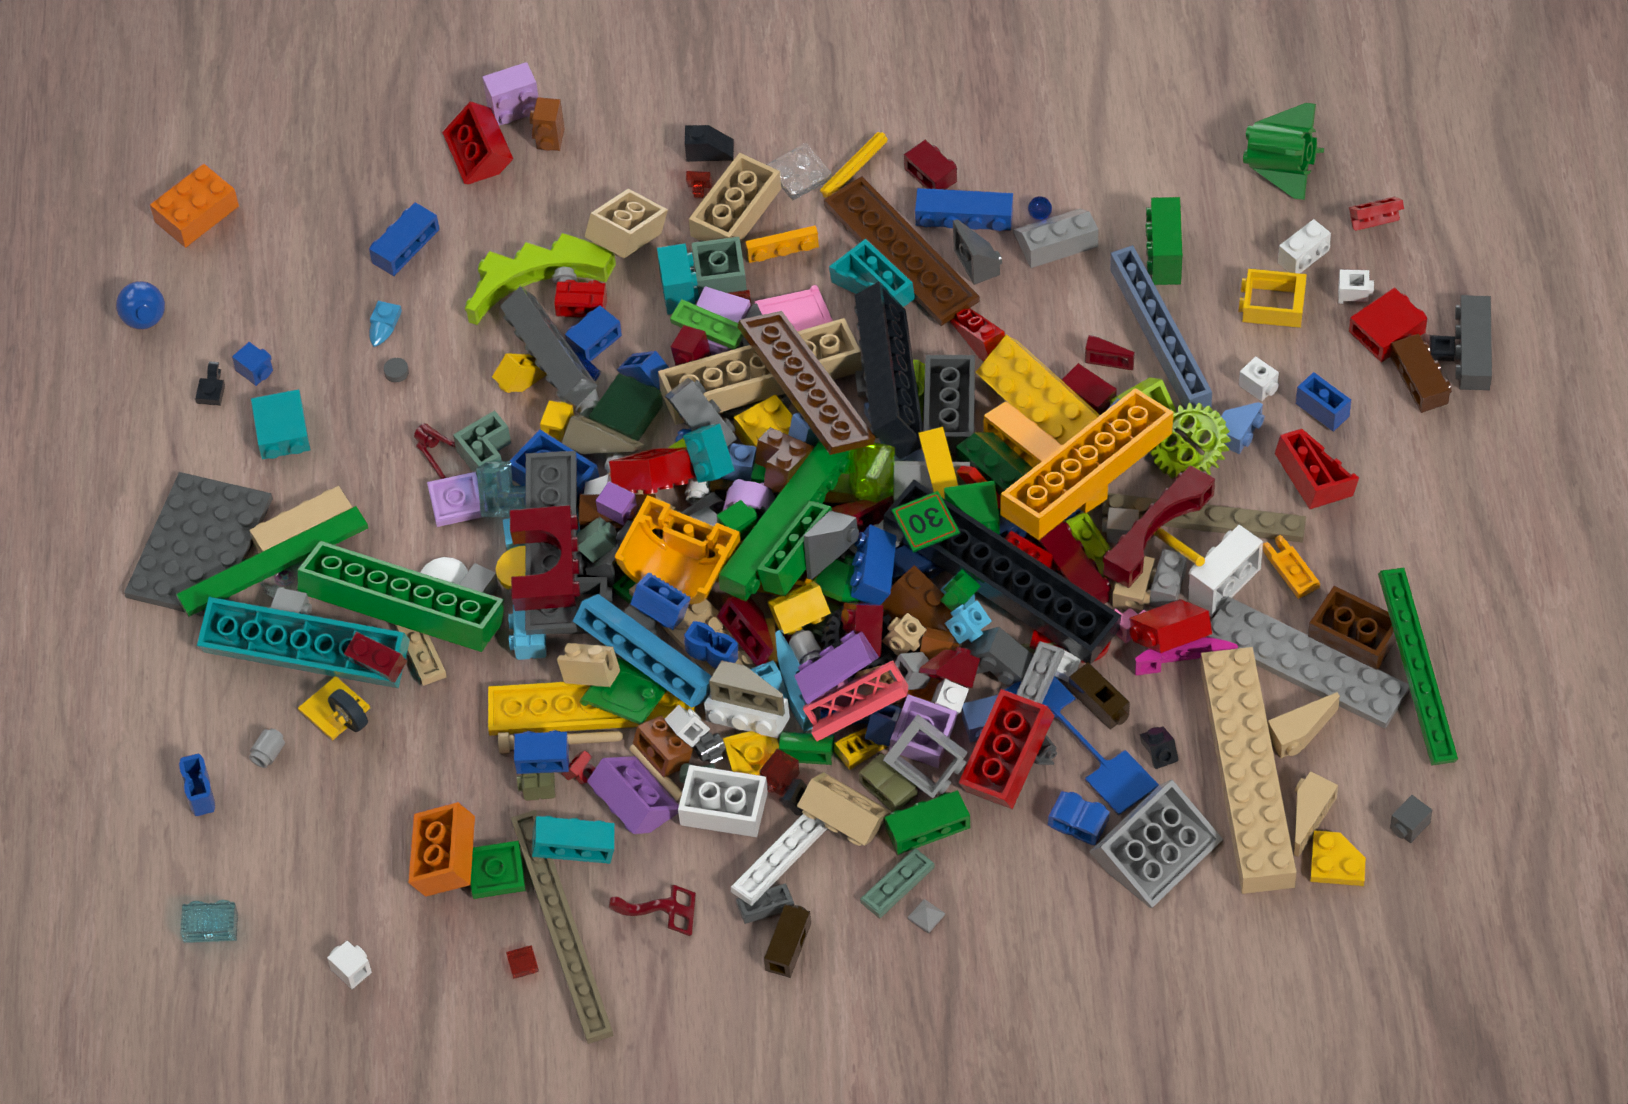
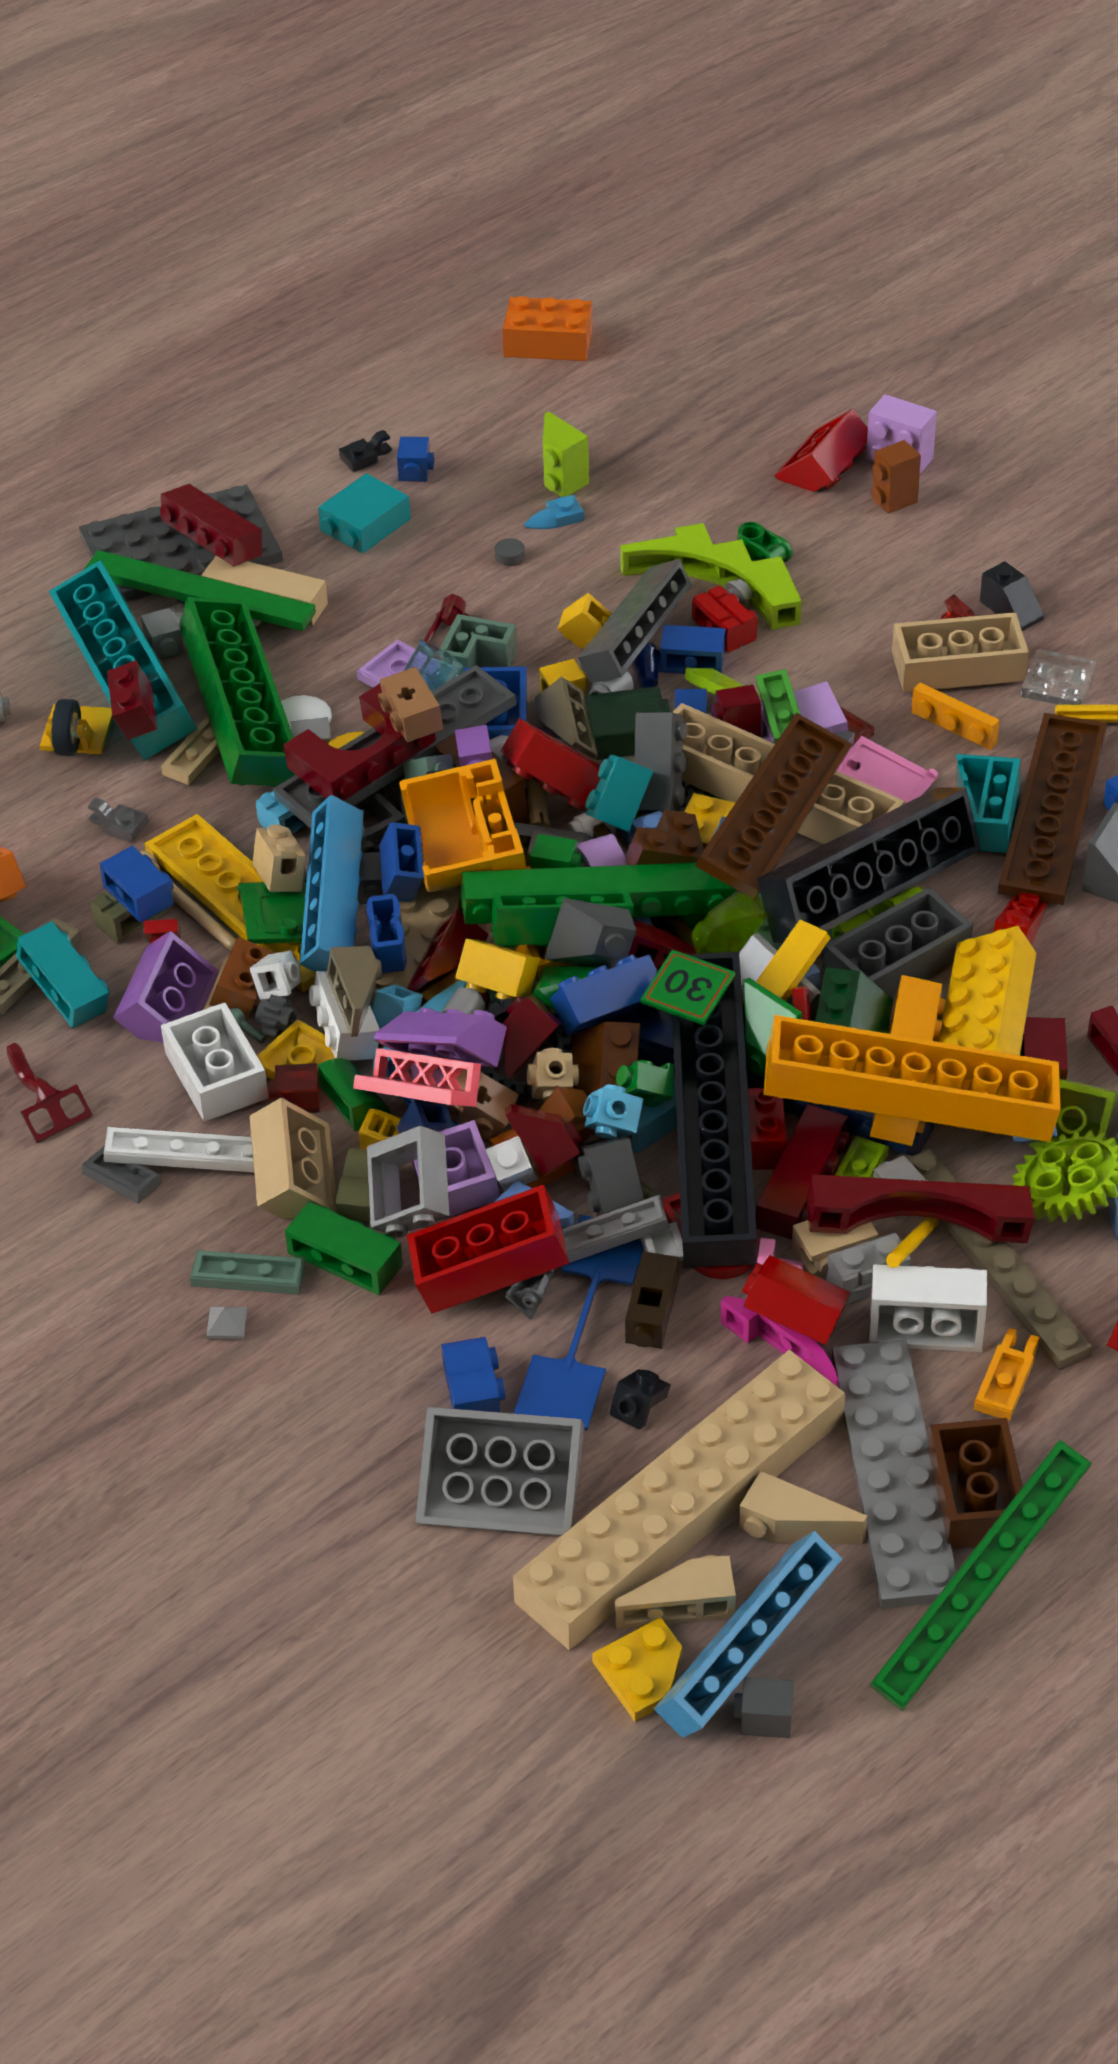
camera: 50 degrees right, 10 degrees down
(140, 305) = (397, 355): blue brick -> none
(222, 515) = (211, 524): none -> dark red brick
(343, 282) = (564, 456): none -> lime slope
(404, 239) = (661, 470): blue brick -> none
(447, 732) = (120, 823): none -> flat silver plate
(534, 234) = (762, 543): none -> green piece
(557, 508) = (410, 704): none -> medium nougat brick
(626, 223) = (839, 587): tan brick -> none
(643, 341) = (710, 679): none -> lime tile
(677, 276) = (819, 655): teal brick -> none
(719, 265) = (871, 683): sand green brick -> none
(787, 940) = (88, 1218): dark brown brick -> none
(909, 668) = (510, 1093): light grey brick -> none
(1364, 796) = (747, 1635): none -> dark azure brick

